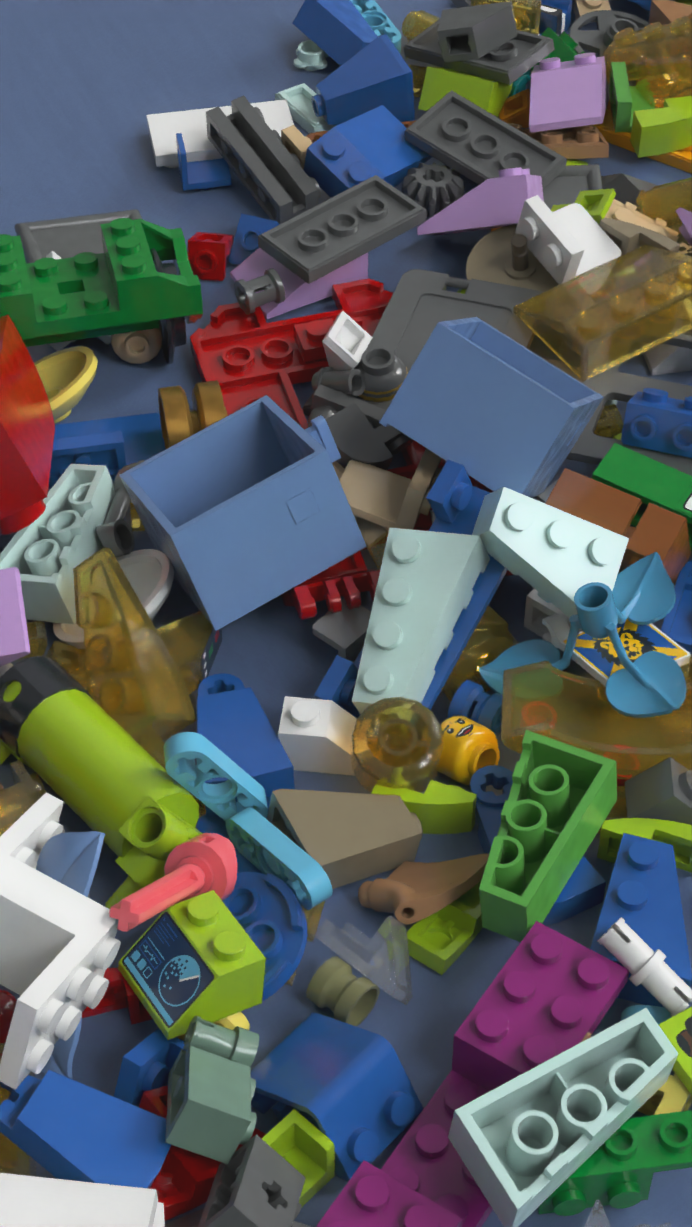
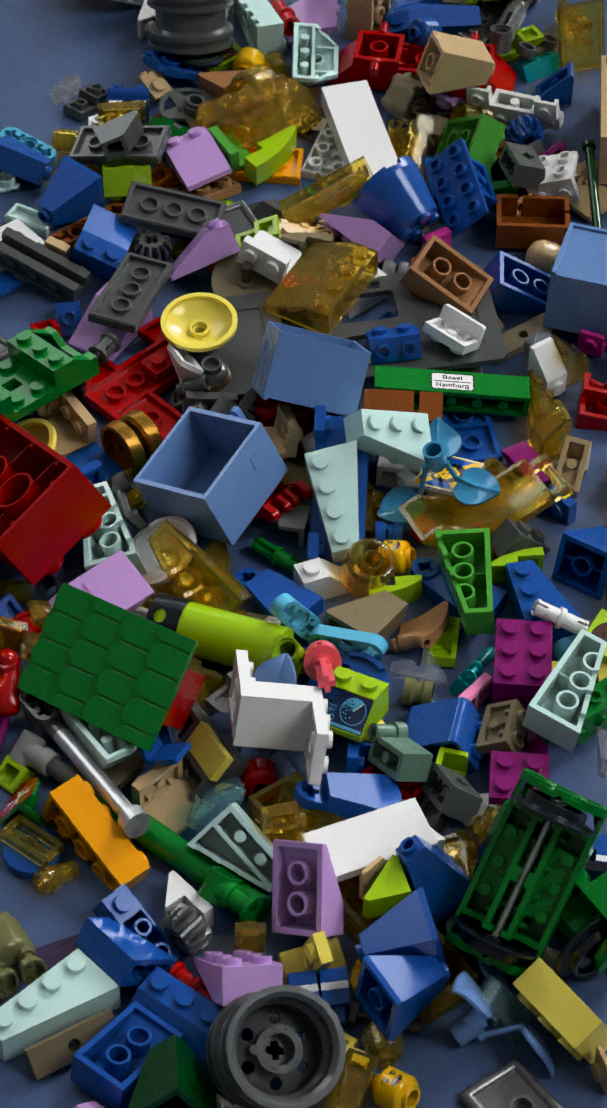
camera: 30 degrees left, 0 degrees up
(128, 385) = (74, 426): none -> tan bracket
(287, 672) = (276, 555): none -> green axle
(399, 295) = (199, 322): none -> light yellow dish
(417, 1128) = (502, 728): none -> dark tan bracket
(427, 1040) = (479, 690): none -> bright pink tile
(446, 1000) = (470, 674): none -> teal piece

